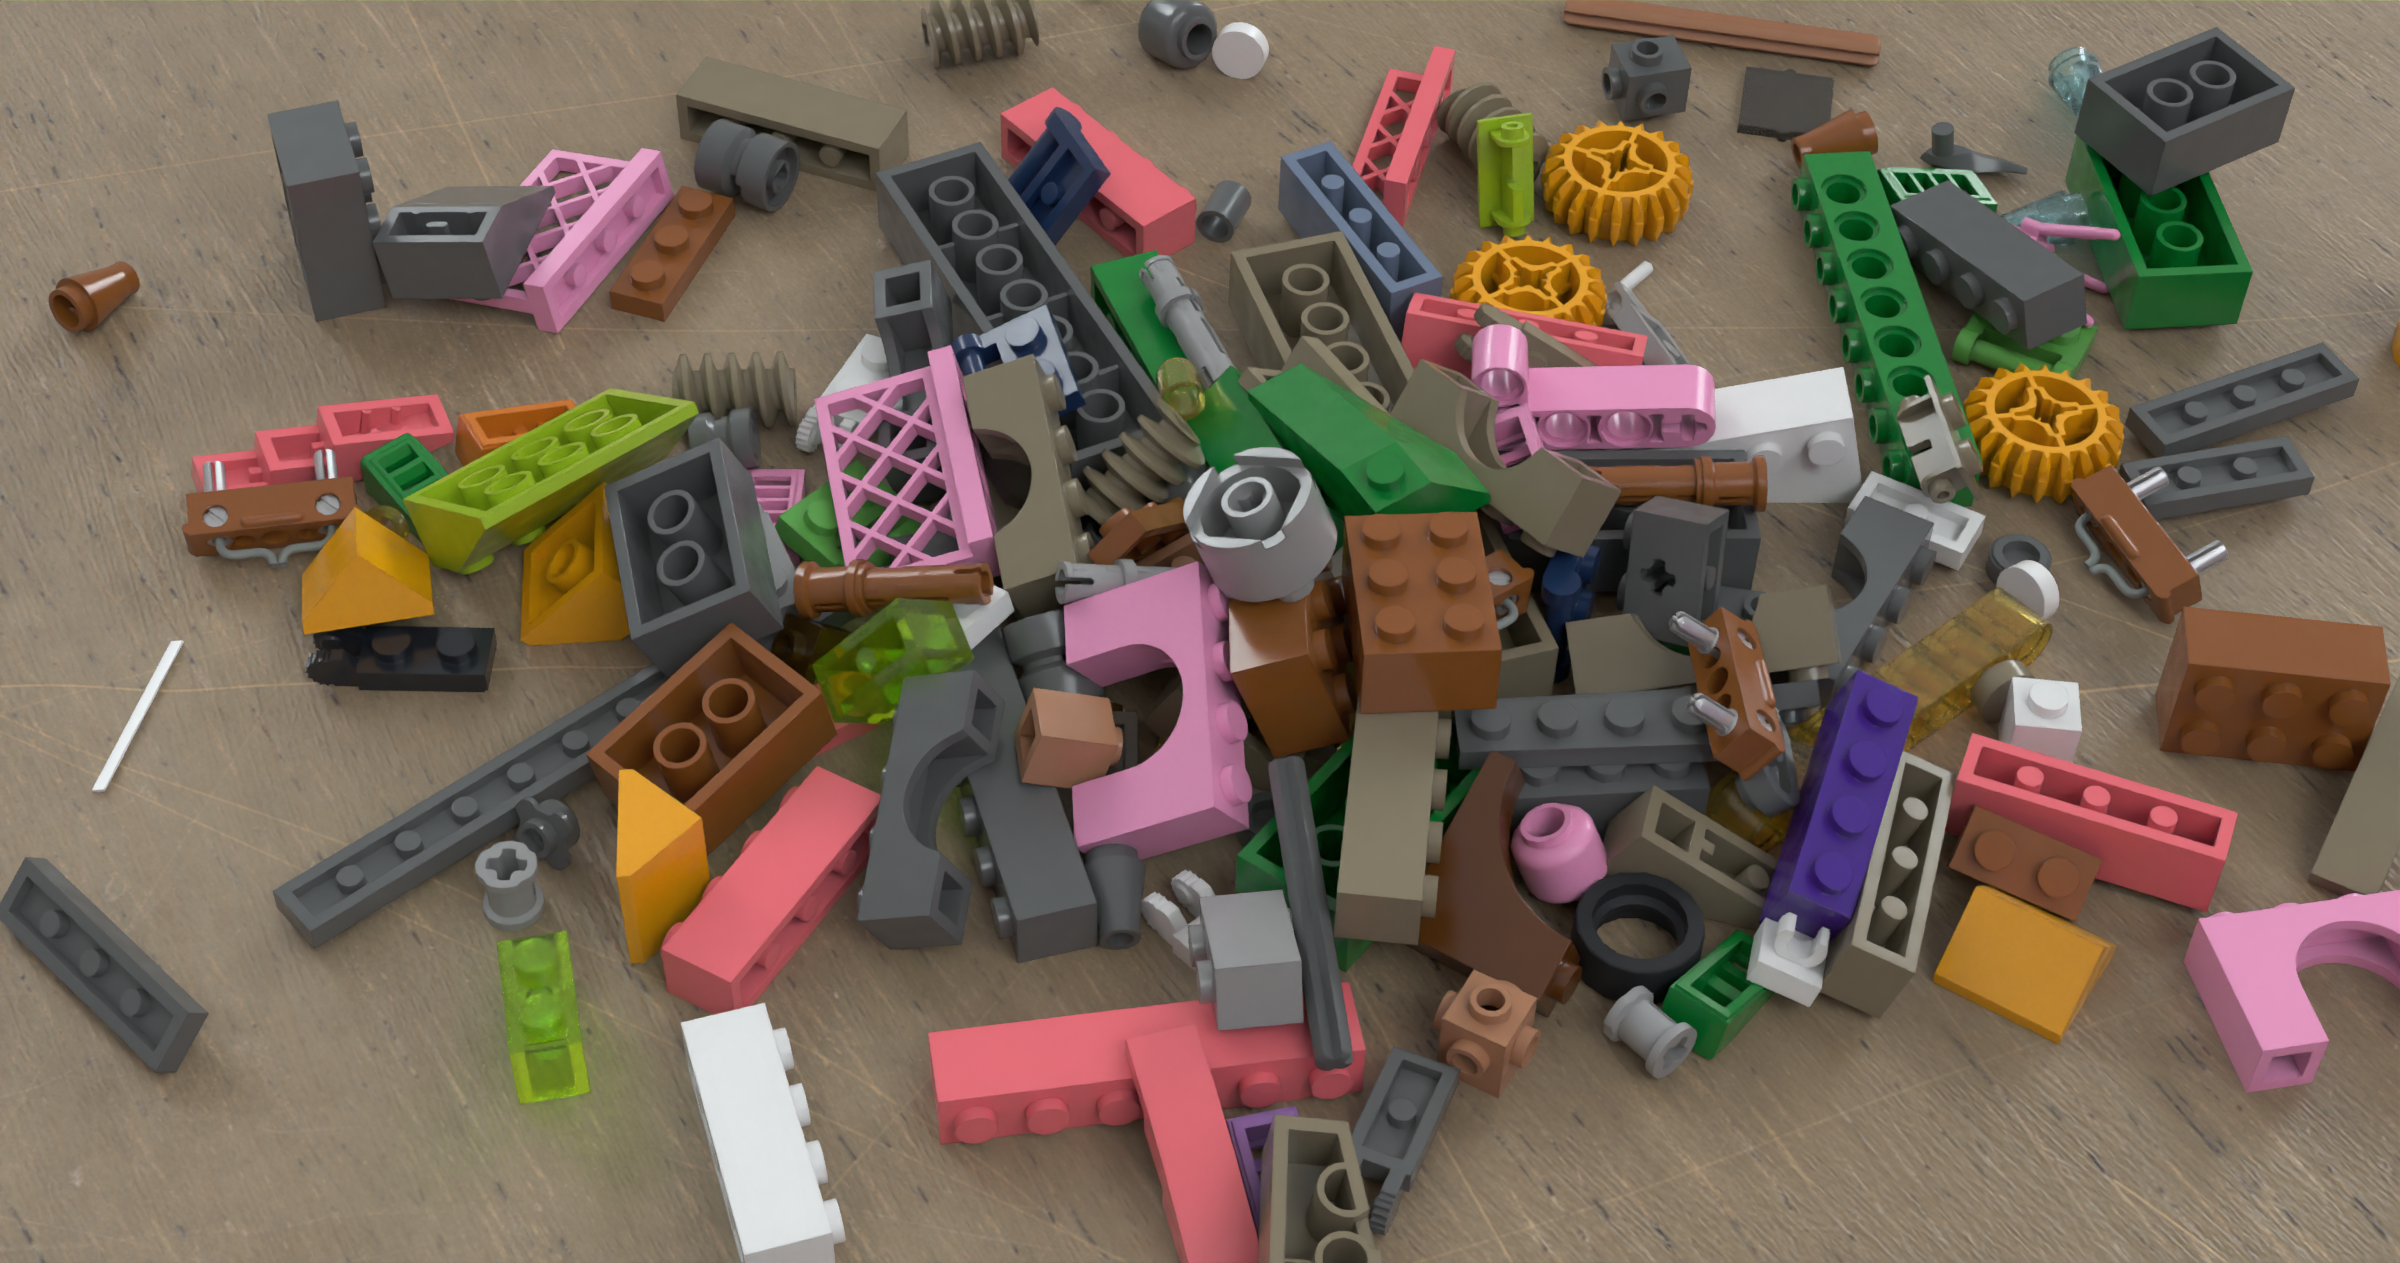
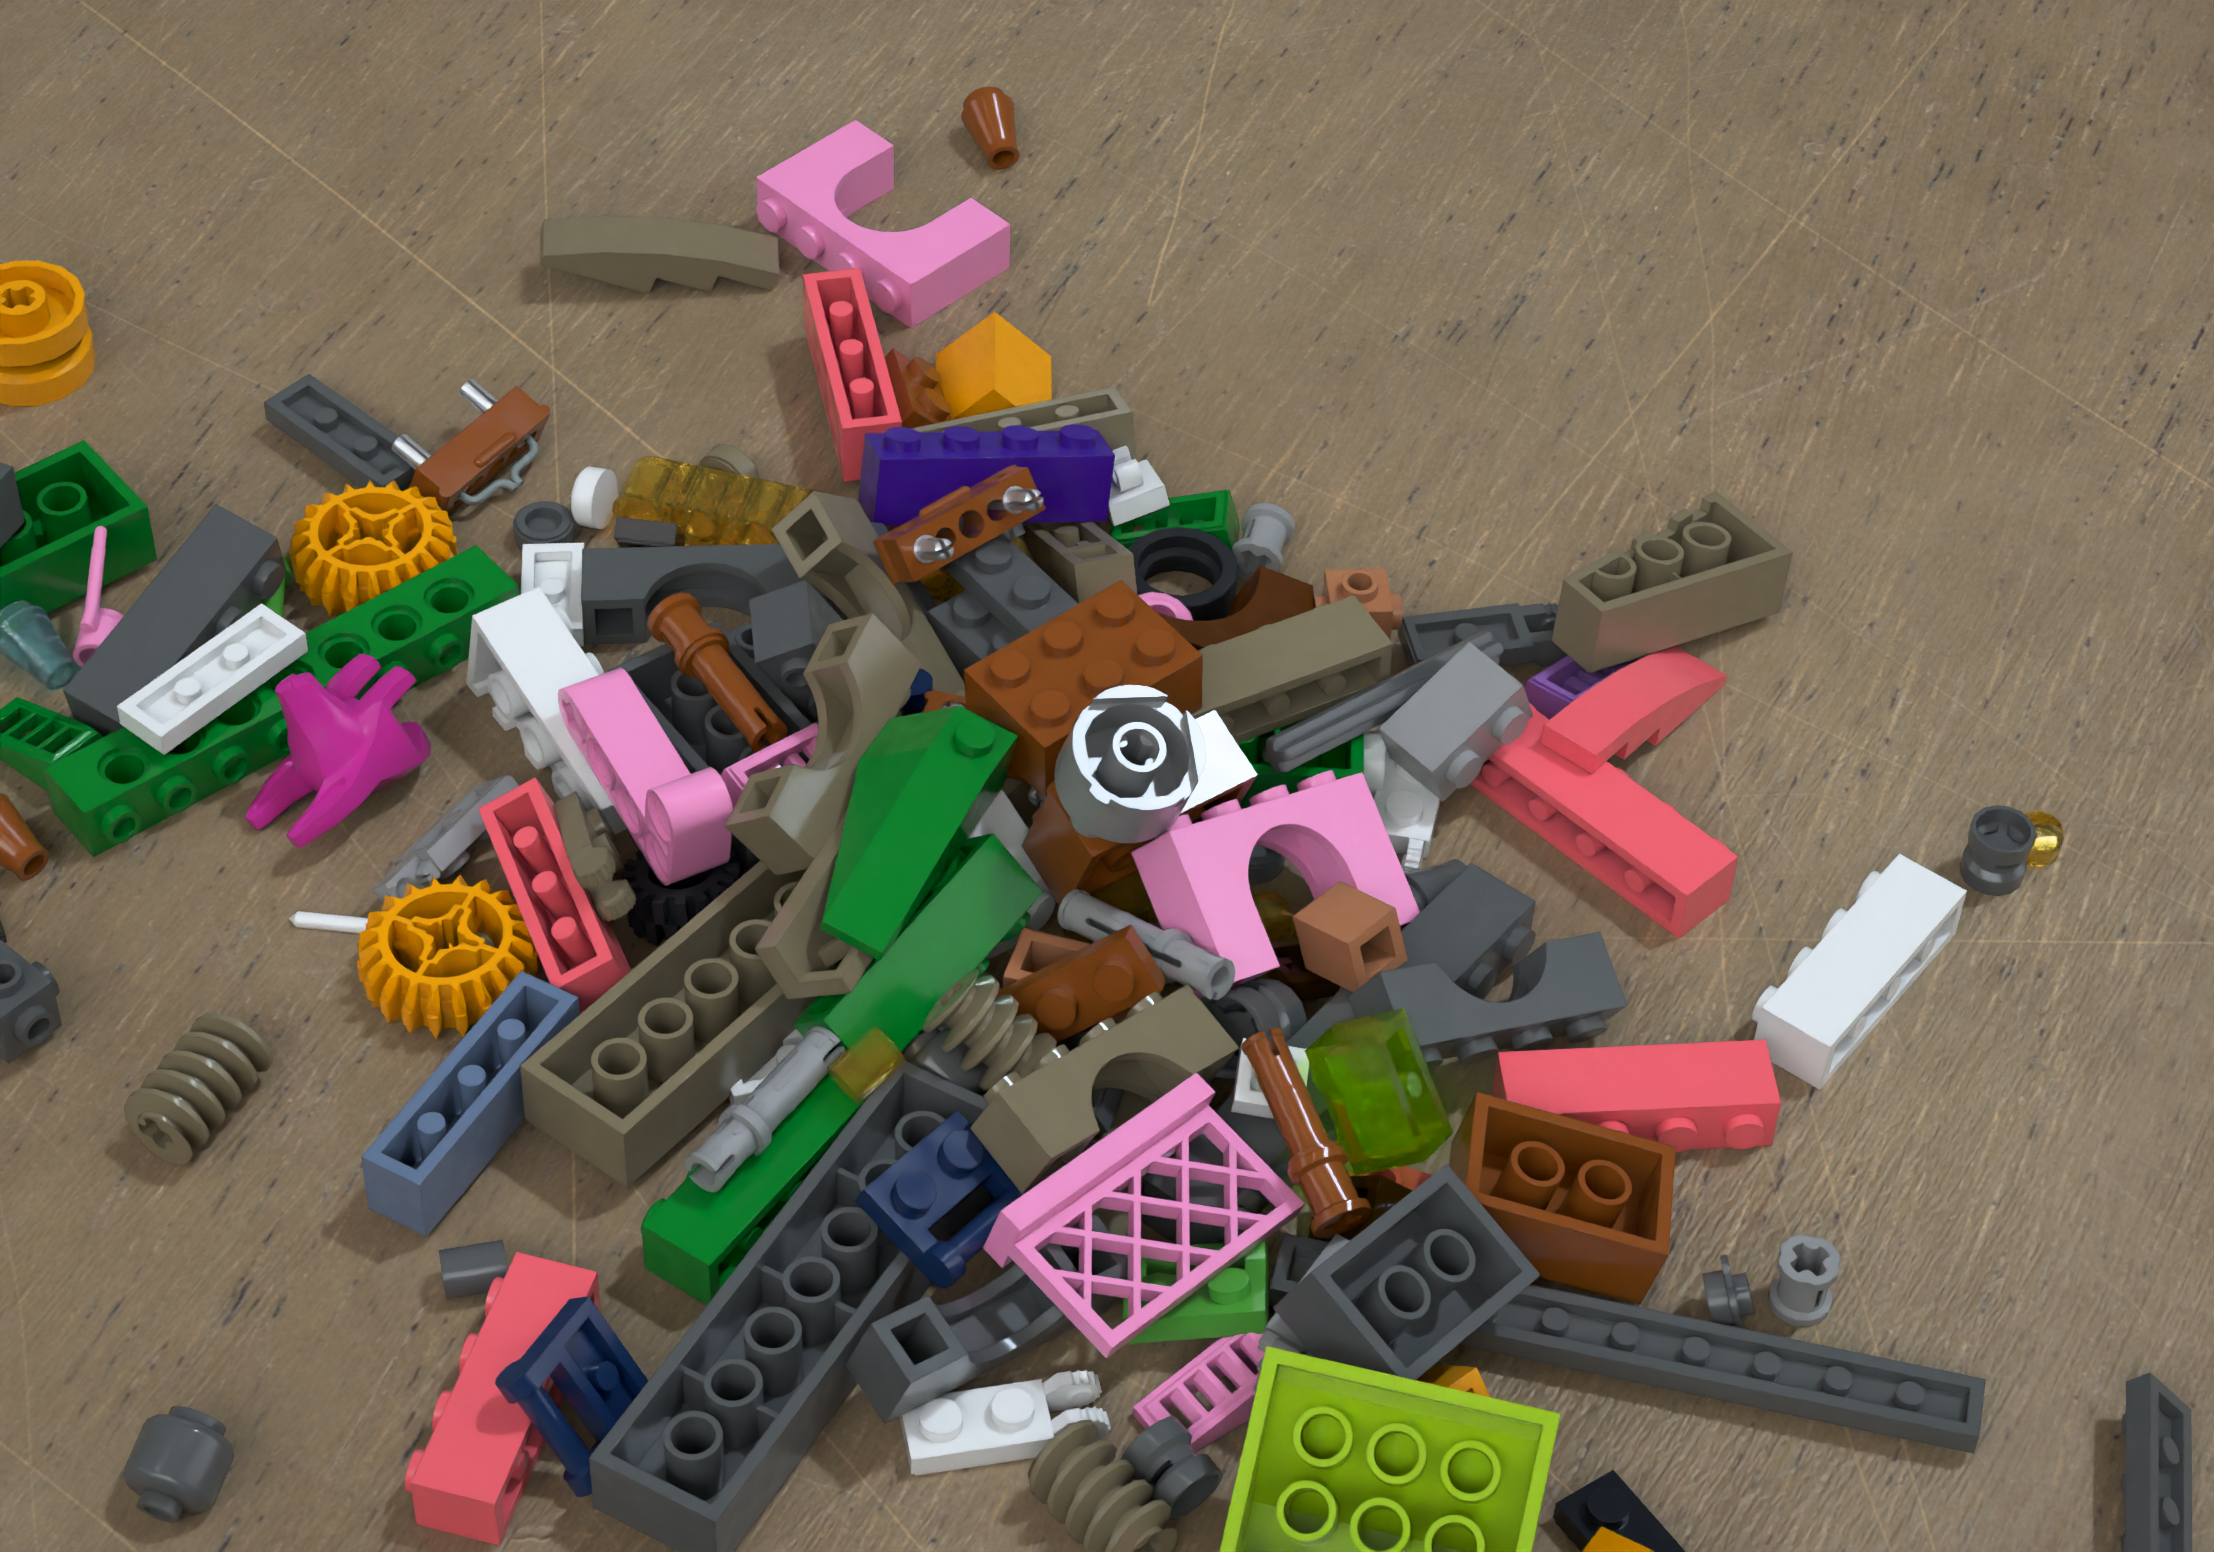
camera: 125 degrees left, 0 degrees up
(543, 1017) = (1897, 1164): clear neon green brick -> none
(658, 863) = (1723, 1155): light orange slope -> none
(1240, 50) = (170, 1383): white tile -> none
(1413, 145) = (231, 1167): coral fence -> none
(1505, 172) = (287, 1015): lime hinge -> none
(1617, 183) = (160, 955): light orange gear -> none
(1784, 309) = (339, 746): none -> dark pink piece
(1894, 241) = (212, 679): none -> white plate
(1943, 594) = (647, 533): none -> black tile
(1950, 461) = (471, 565): dark tan hinge -> none
(2042, 717) = (766, 431): white brick -> none
(2242, 401) = (222, 450): dark grey plate -> none
(2271, 688) = (628, 312): dark orange brick -> none

